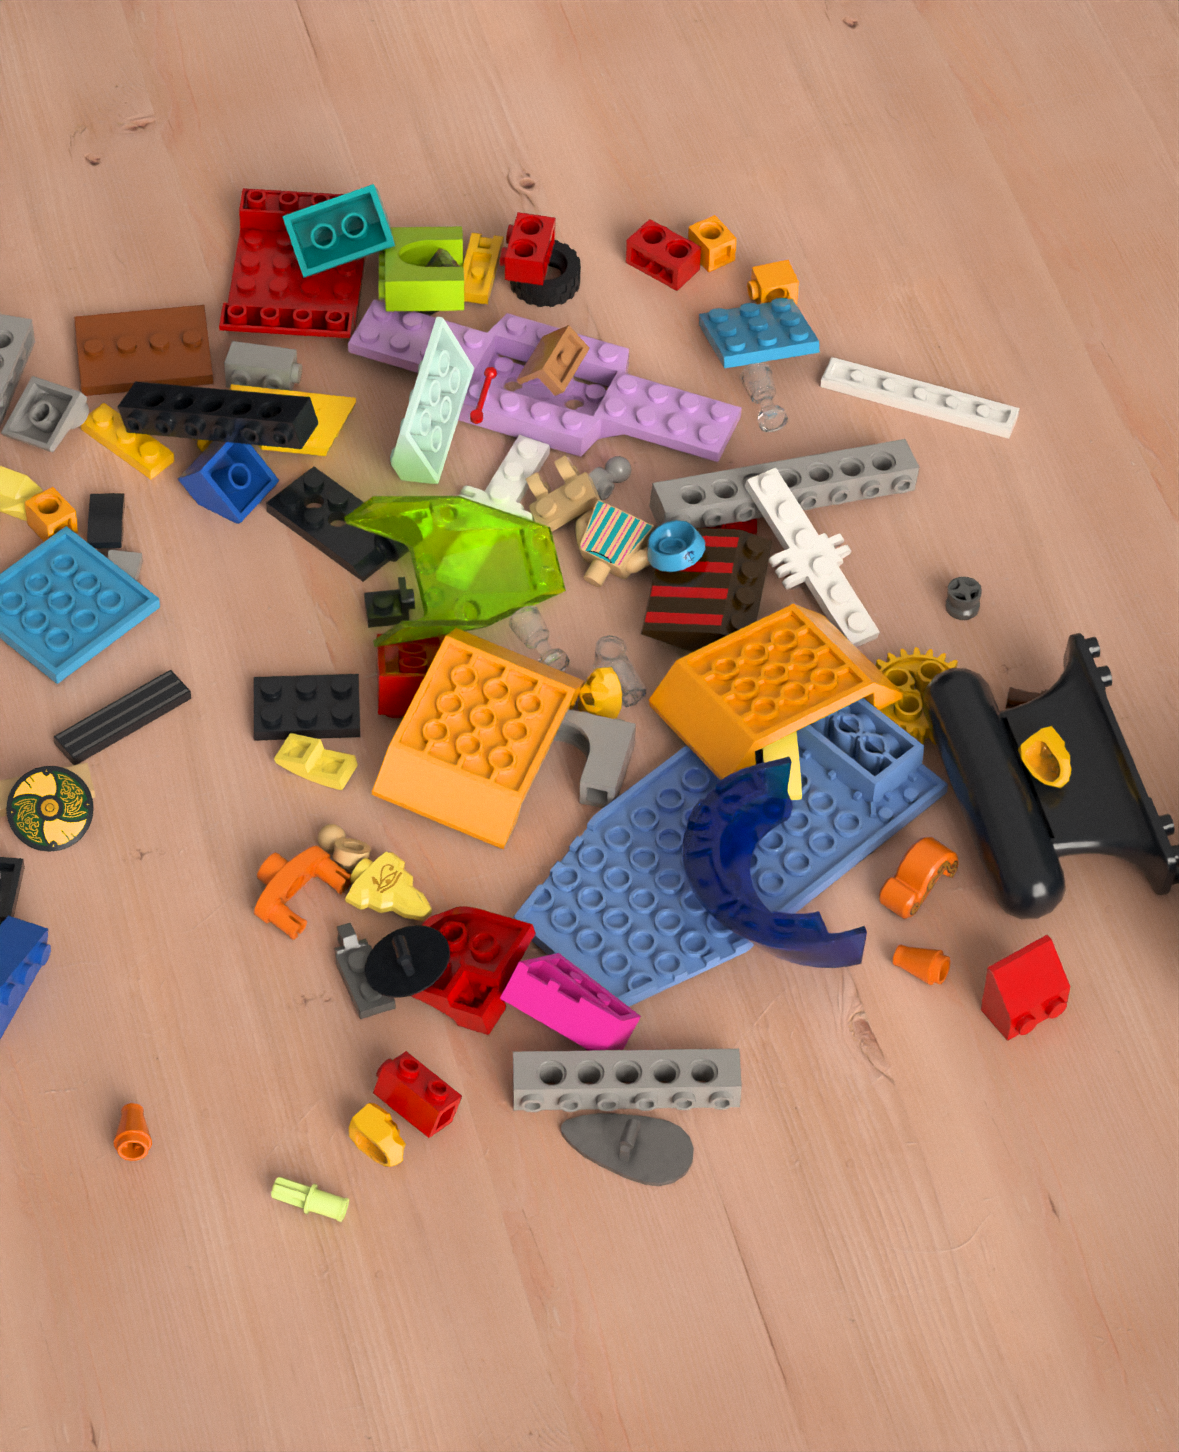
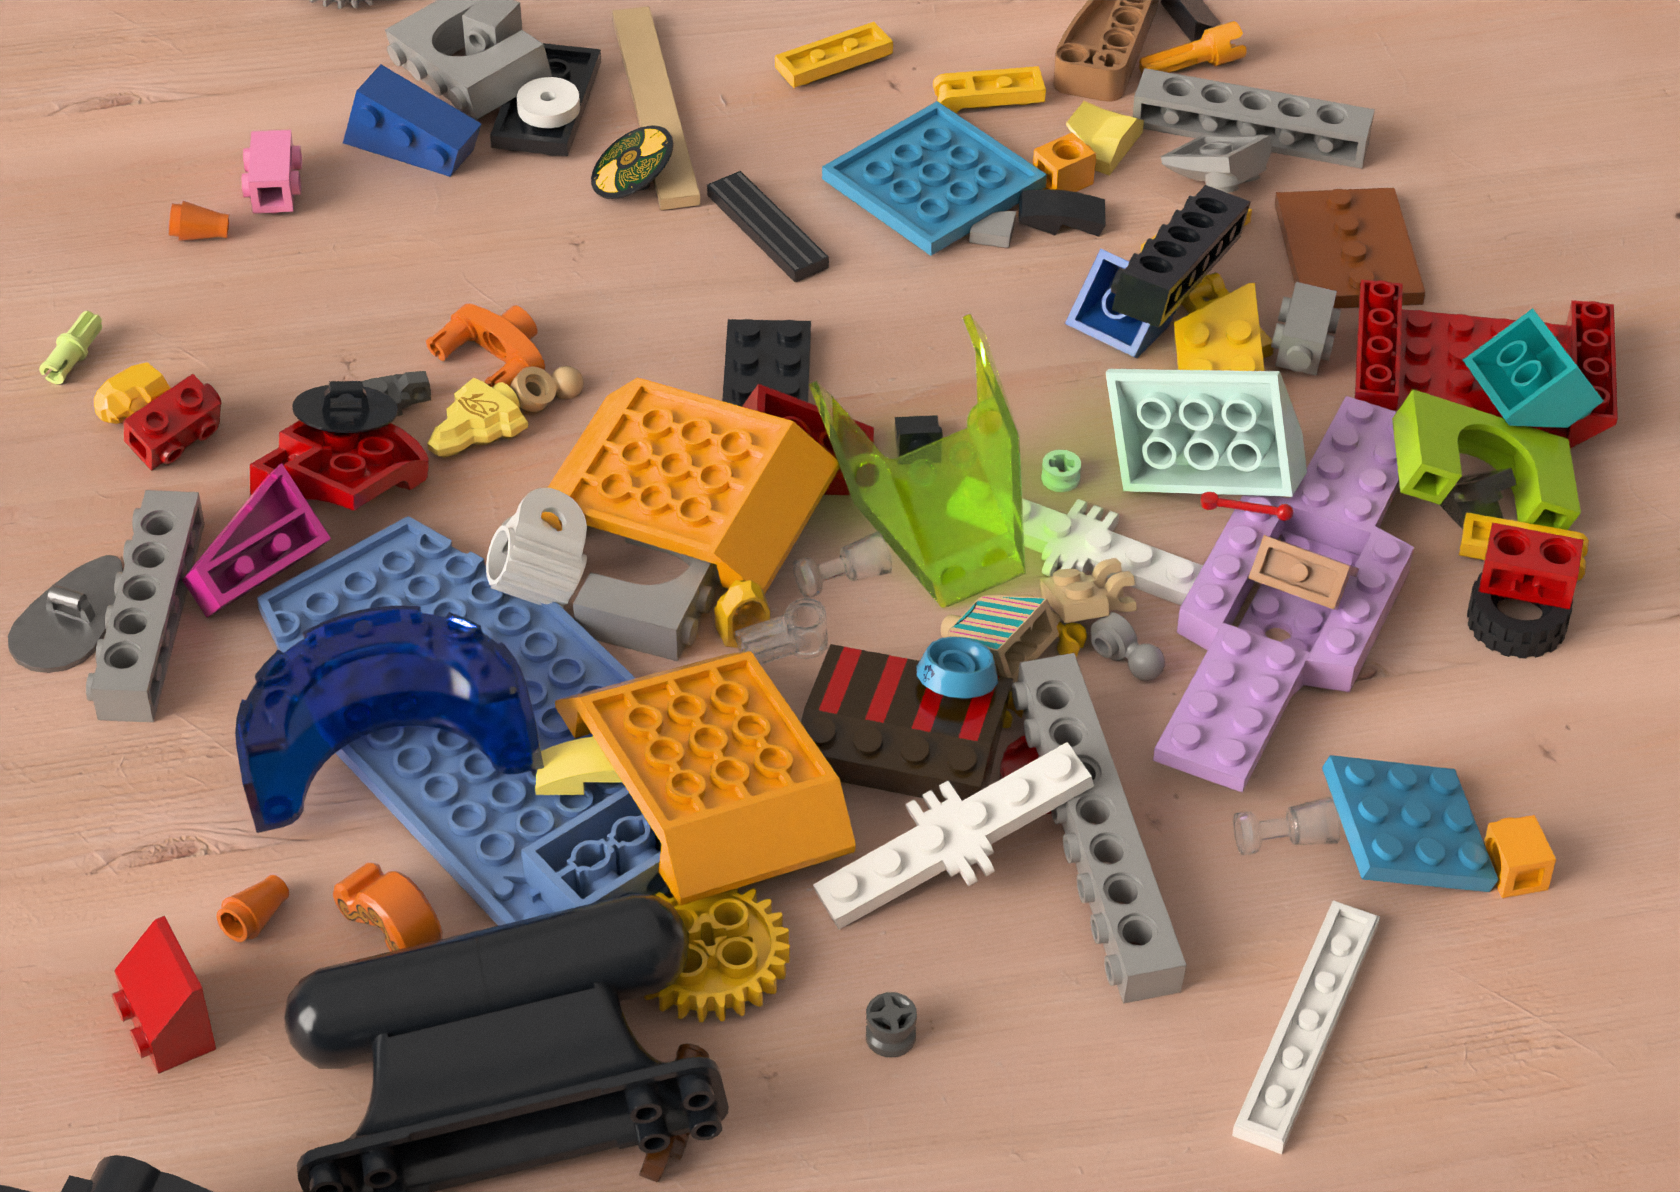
camera: 95 degrees right, 5 degrees down
(66, 1075) = (272, 171): none -> bright pink brick
(310, 760) = (687, 364): light yellow slope -> none
(349, 546) = (1054, 427): black hinge -> none
(560, 801) = (533, 557): none -> white piece
(663, 254) = (1569, 735): red brick -> none
(716, 242) = (1599, 790): light orange brick -> none
(1047, 757) = (498, 1016): rock -> none

